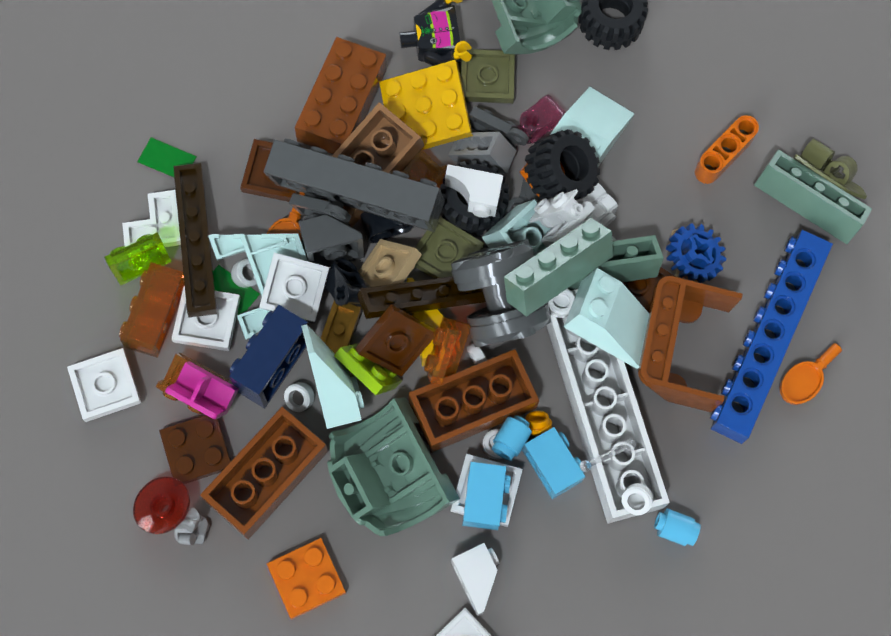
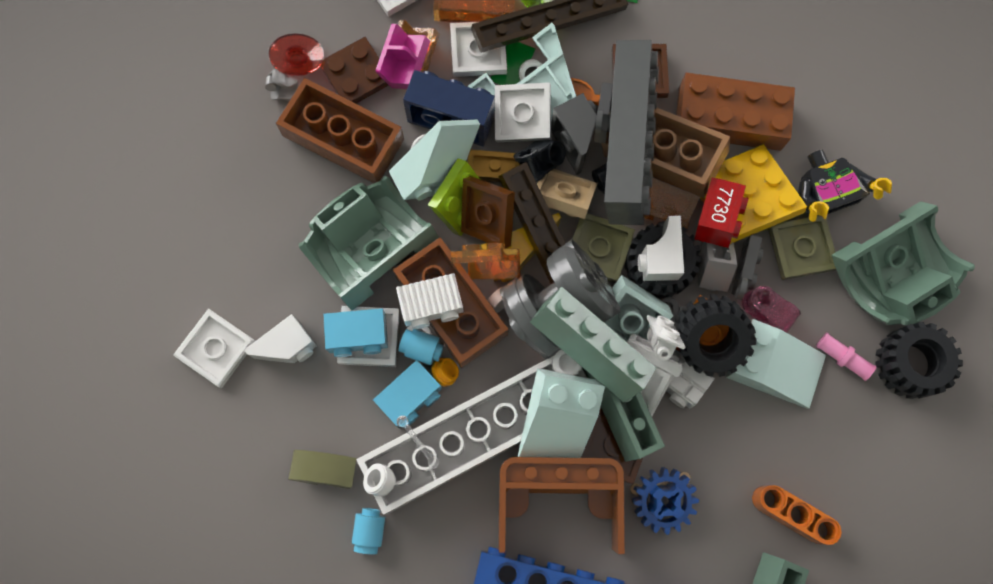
camera: 80 degrees right, 5 degrees up
(306, 578) = (257, 194): orange plate -> none
(447, 131) = (720, 212): none -> red brick
(476, 412) = (430, 301): none -> white brick
(595, 70) = (846, 356): none -> bright pink pin
(609, 560) = (322, 468): none -> olive slope

